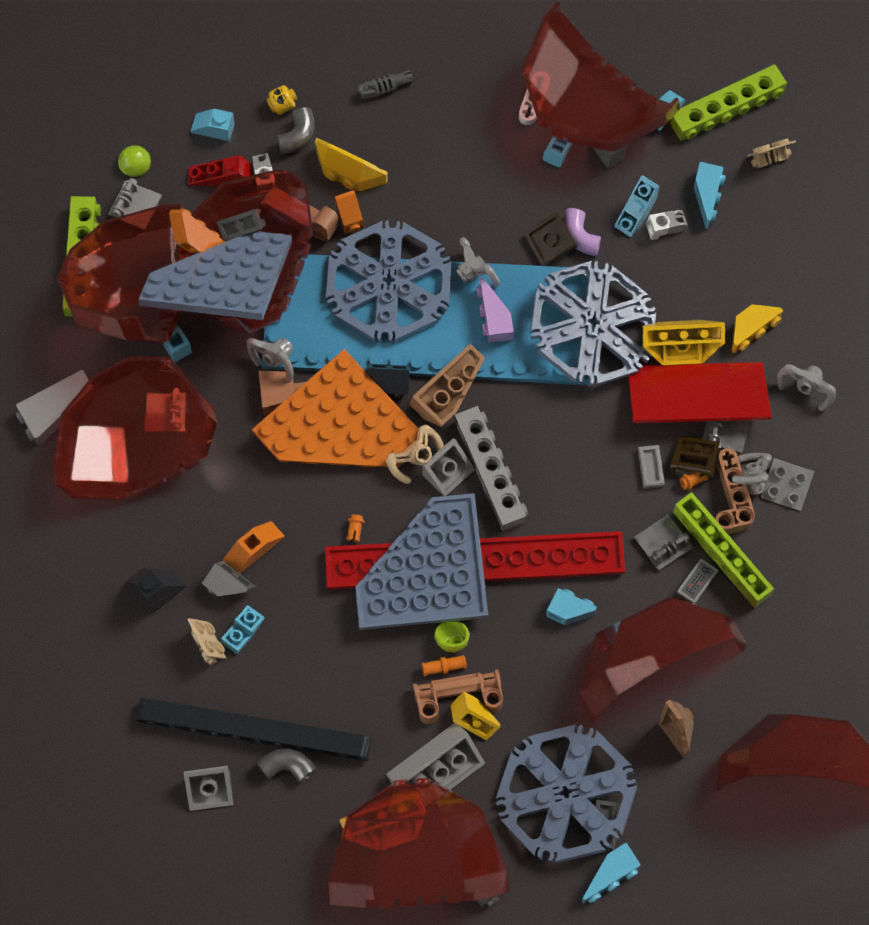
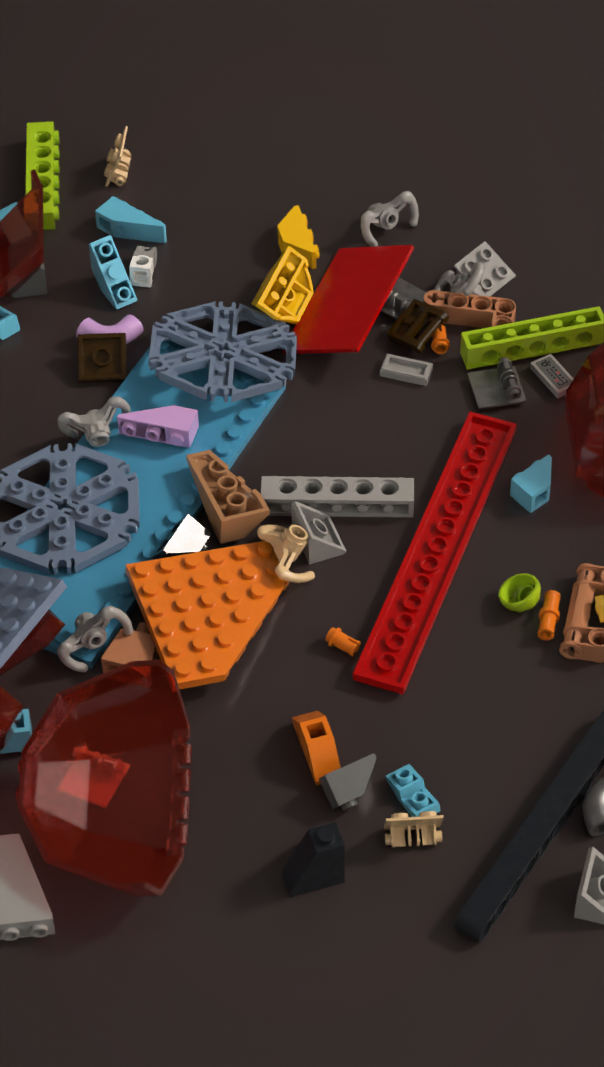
camera: 65 degrees left, 20 degrees down
(428, 571) = (433, 583): sand blue plate -> none

